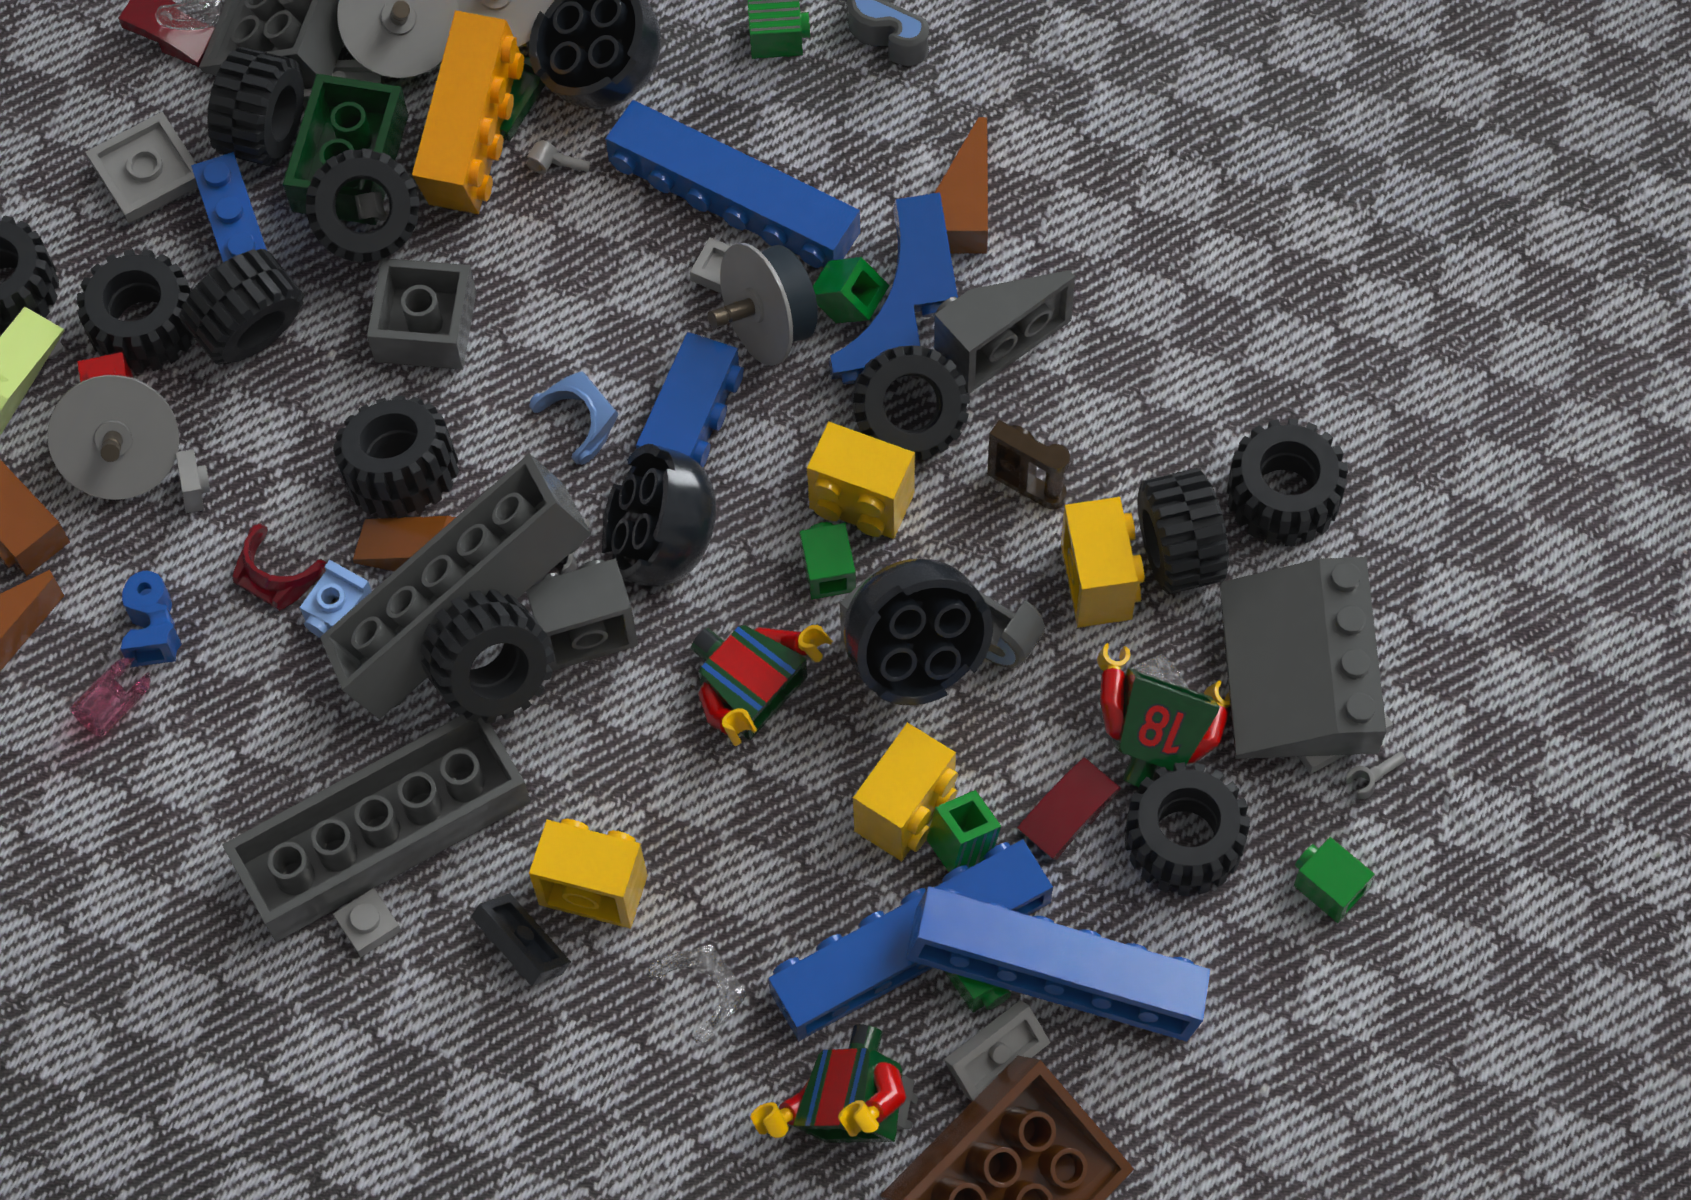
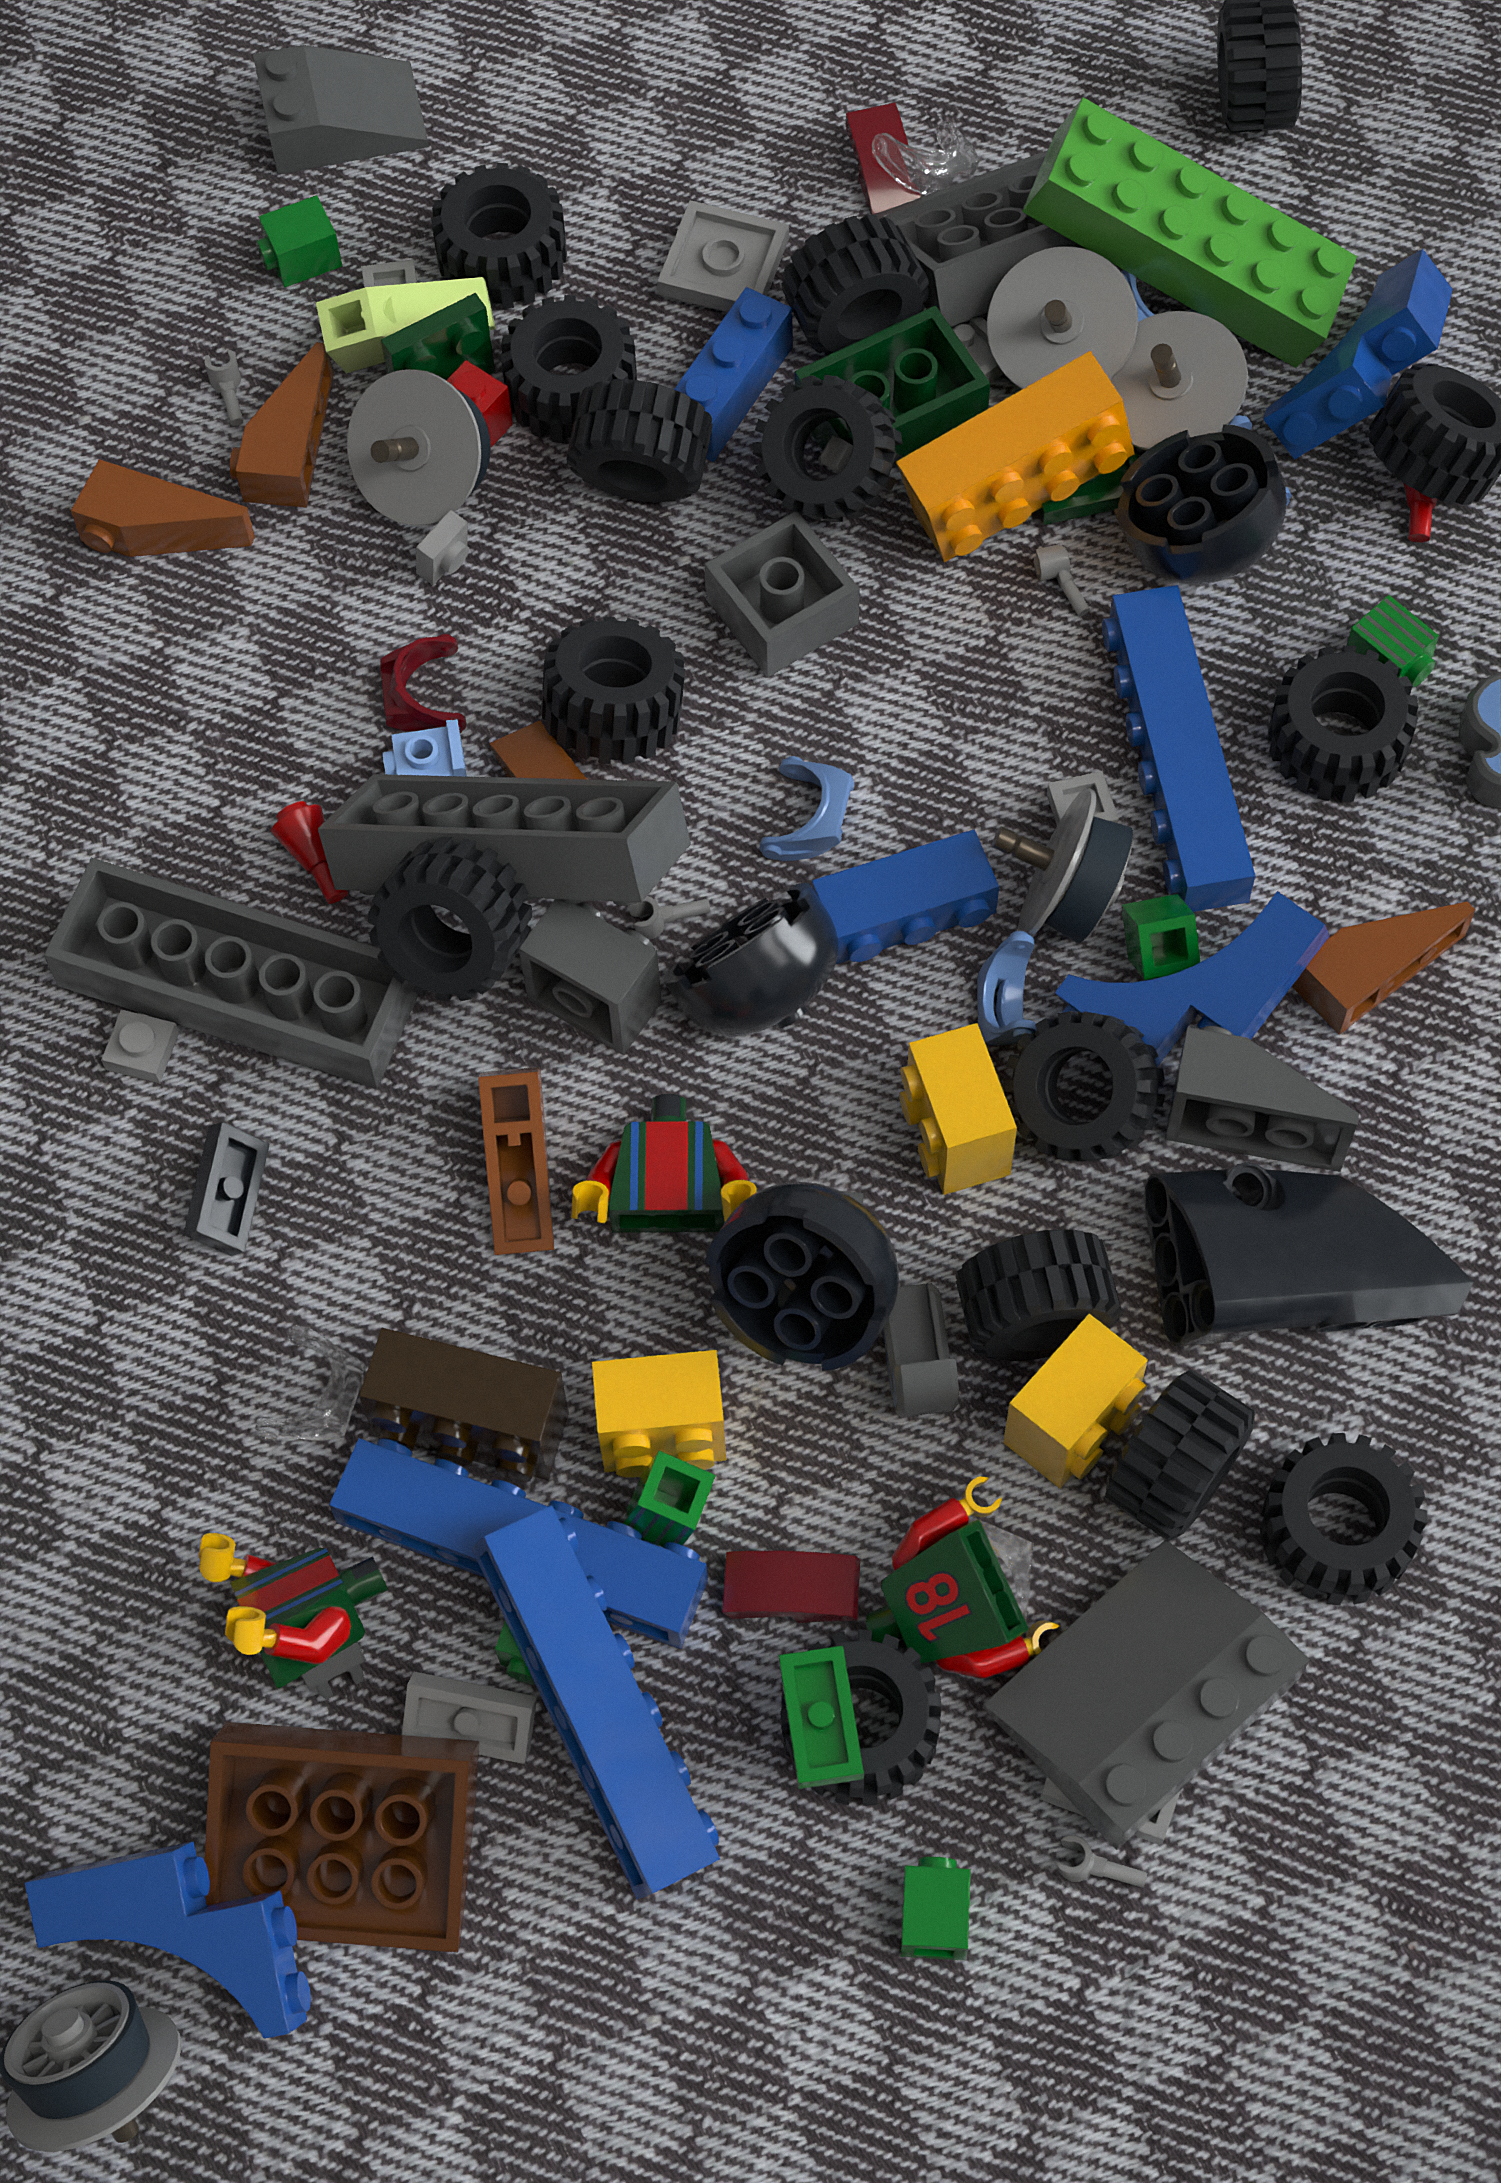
camera: 50 degrees right, 0 degrees up
(53, 368) = (443, 341): none -> dark green plate
(107, 700) = (177, 659): clear pink piece -> none
(149, 607) = (296, 617): blue leg -> none
(319, 715) = (299, 834): none -> red cone
(589, 872) = (334, 1190): yellow brick -> none
(656, 752) = (516, 1160): none -> dark orange slope
(798, 408) = (1005, 971): none -> medium blue helmet
(799, 61) = (1351, 686): none -> black tyre
(802, 899) = (465, 1405): none -> dark brown brick
(827, 560) = (856, 1147): green brick -> none
(1015, 459) = (1119, 1224): dark brown plate -> none
(1018, 528) = (1034, 1292): none -> black tyre
(1107, 383) = (1288, 1256): none -> black panel
(1182, 840) = (821, 1717): none -> green plate

